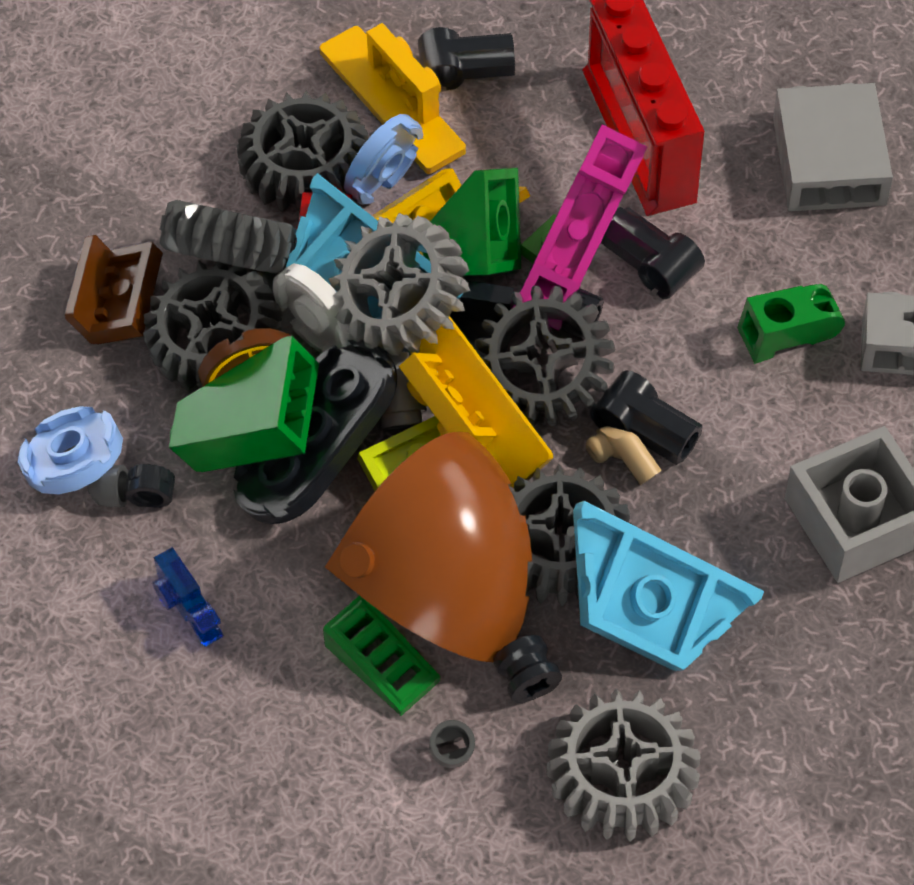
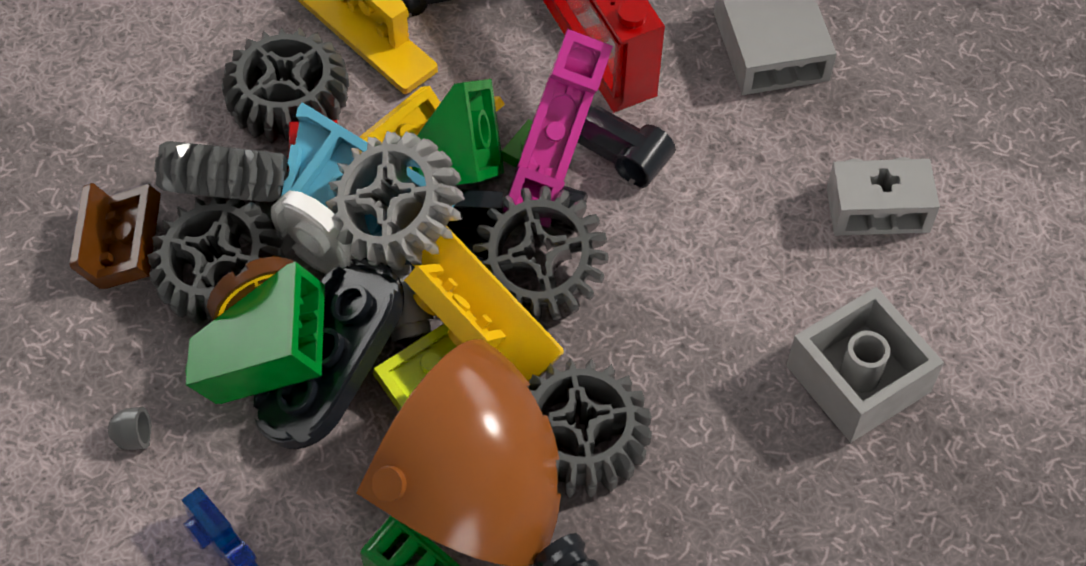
camera: 10 degrees left, 0 degrees up
(59, 472) = (113, 396): light blue tile -> none
(149, 486) = (170, 424): black axle -> none
(383, 158) = (362, 82): light blue tile -> none
(626, 447) = (627, 332): tan arm -> none
(635, 407) = (633, 297): black piece -> none
(651, 591) = (677, 474): medium azure wing -> none
(789, 320) = (761, 195): green leg -> none

